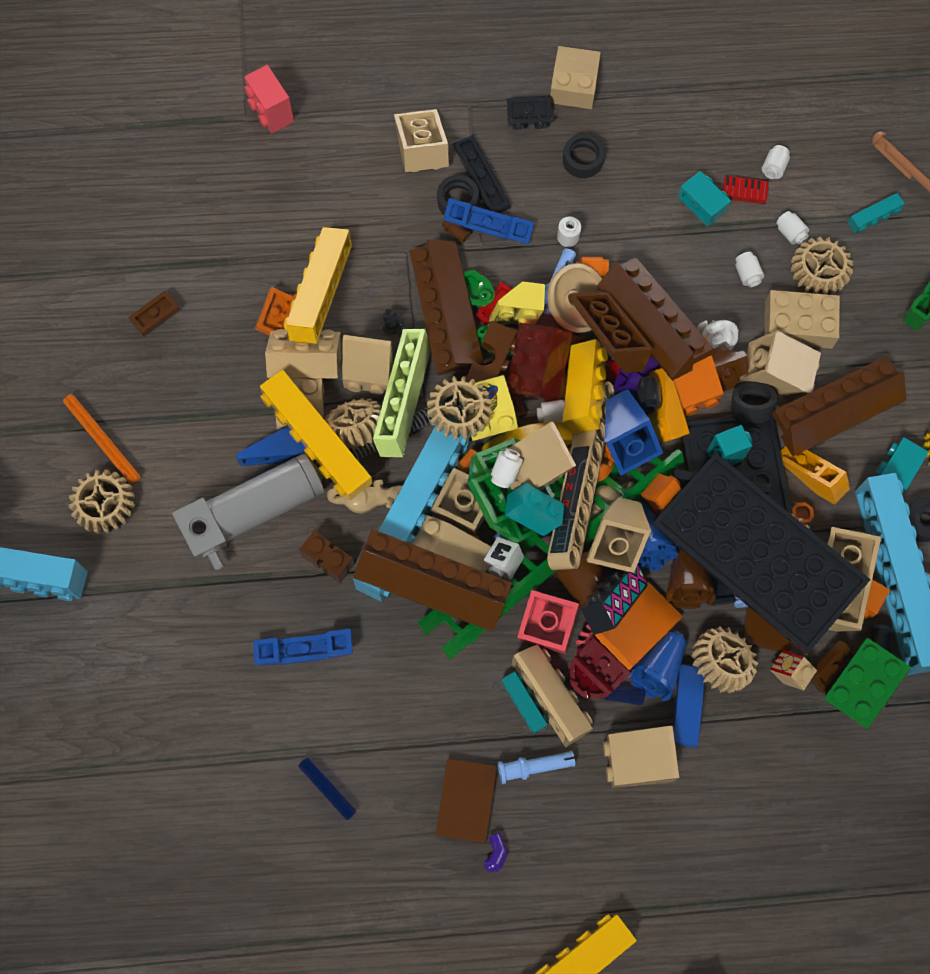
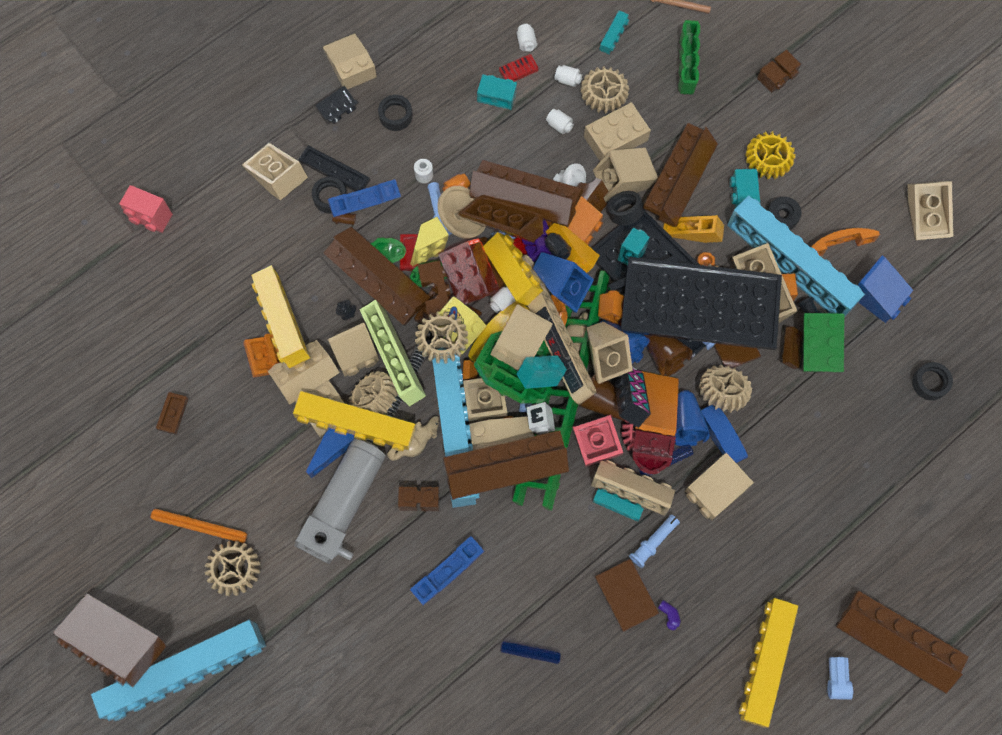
camera: 35 degrees left, 0 degrees up
(506, 468) = (505, 356): white brick -> none
(793, 670) = (771, 365): tan brick -> none

